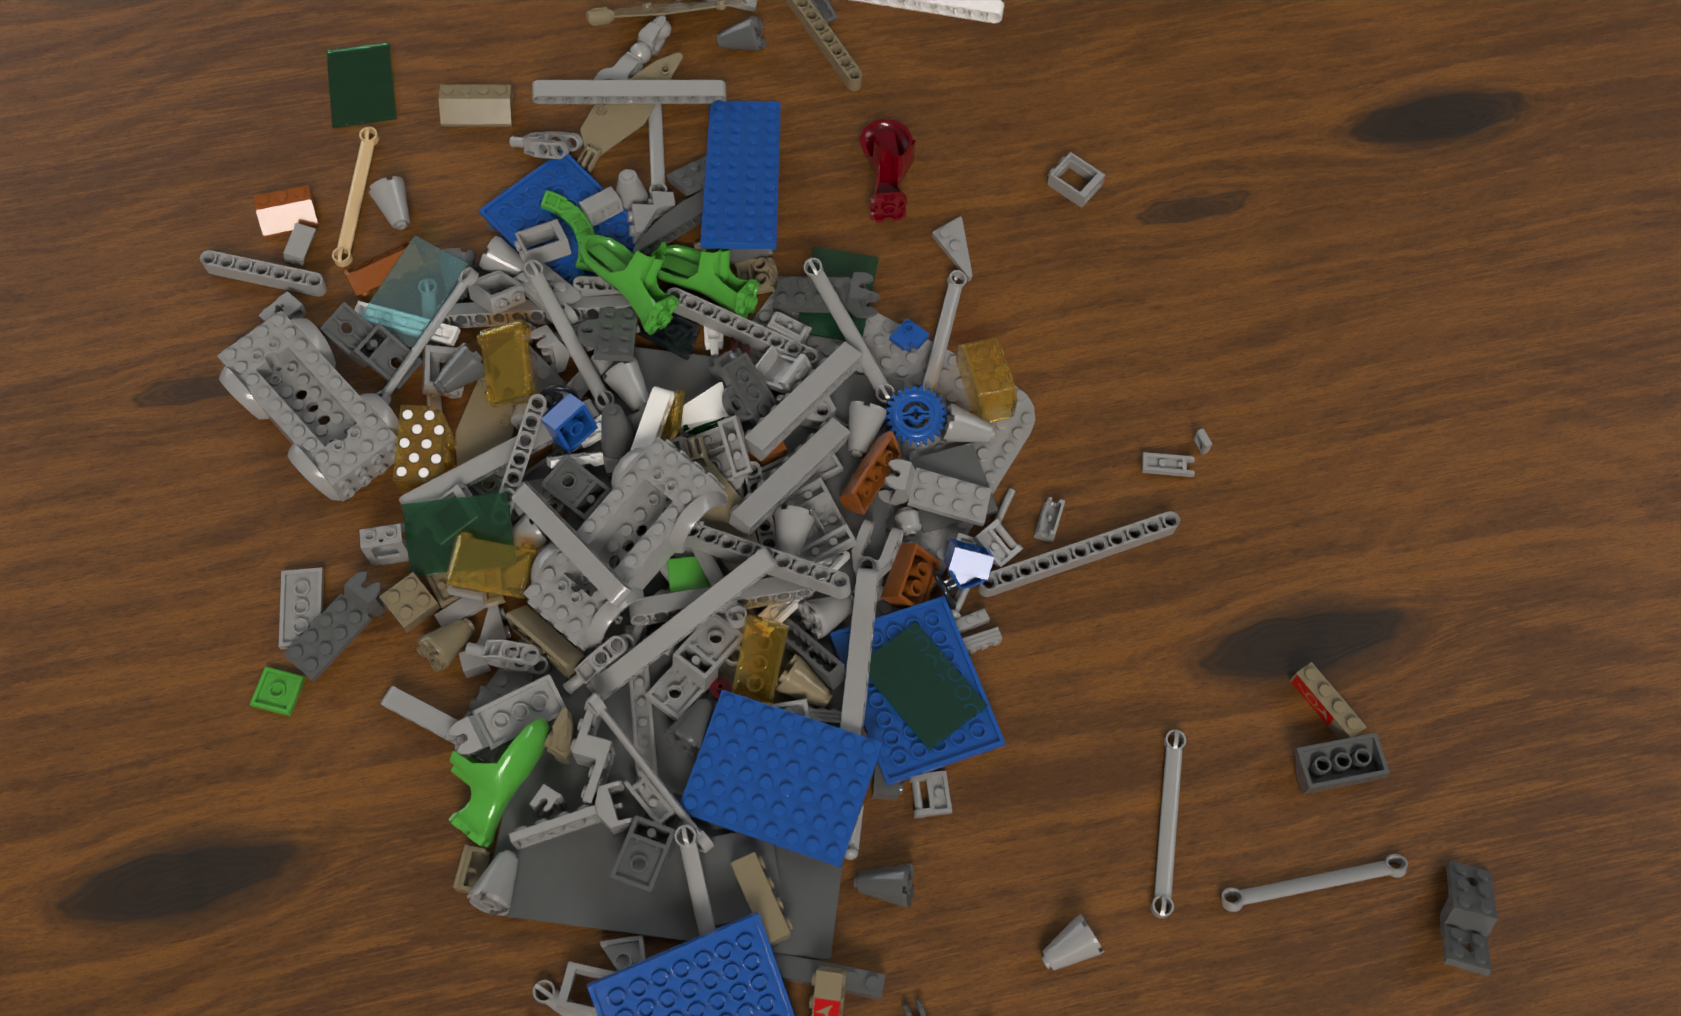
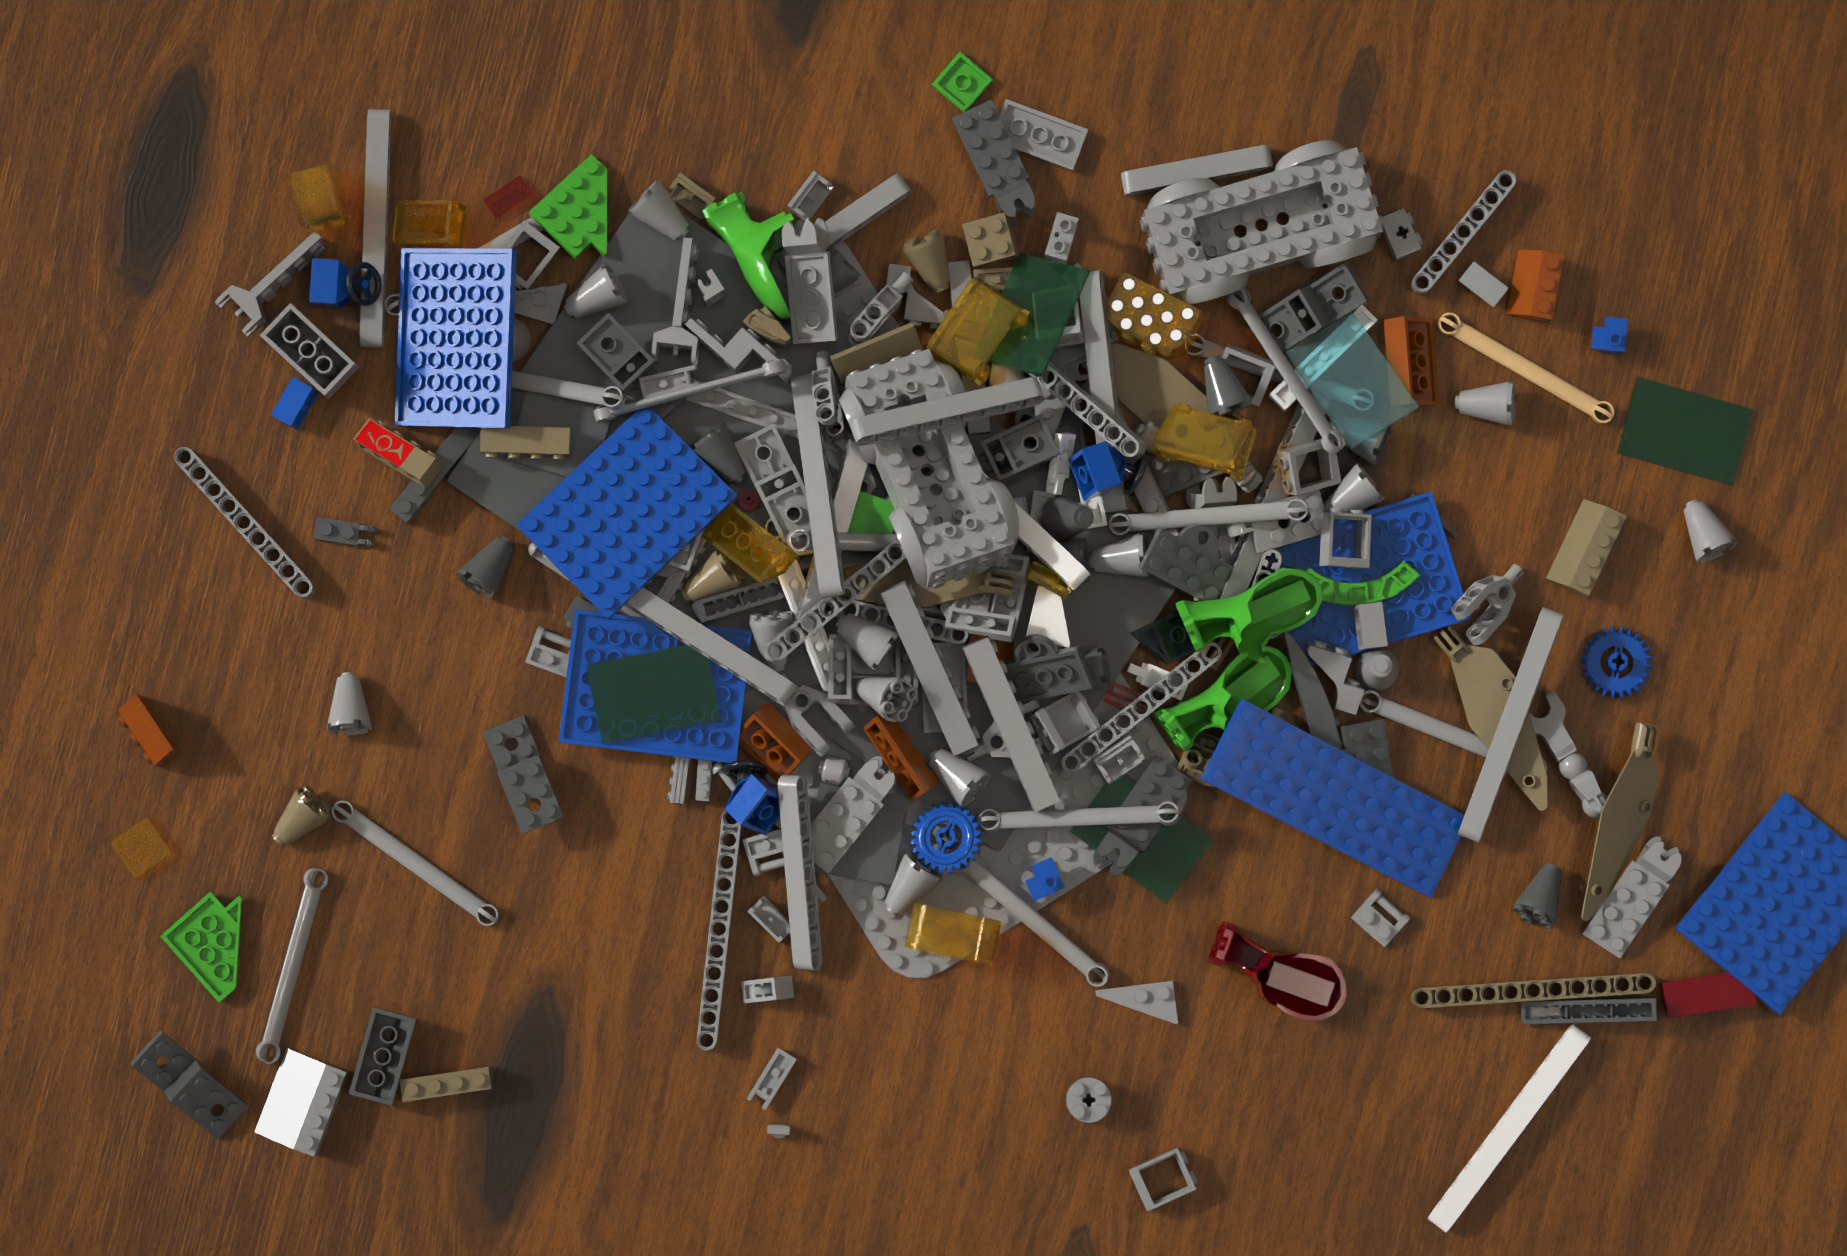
camera: 120 degrees right, 20 degrees up
(286, 477) = (1210, 167): none -> light grey beam
(306, 146) = (1610, 337): none -> blue brick
(429, 769) = (810, 196): none -> light grey hinge
(430, 38) = (1706, 532): none -> light grey cone
(526, 965) = (577, 209): none -> bright green wing
(552, 59) = (1618, 640): none -> blue gear
(598, 903) = (597, 294): none -> light grey cone
(817, 129) = (1375, 923): none -> light grey plate
(830, 497) = (887, 696): none -> light grey cone
(1001, 507) = (800, 872): none -> light grey beam
(1046, 764) = (523, 774): none -> dark grey bracket
(1050, 246) = (1097, 1090): none -> light grey brick
(1104, 495) = (767, 989): none -> light grey arch
(1189, 938) = (301, 816): none -> dark tan cone
(1340, 966) = (209, 943): none -> bright green wing
(1417, 815) = (301, 1102): none -> slope

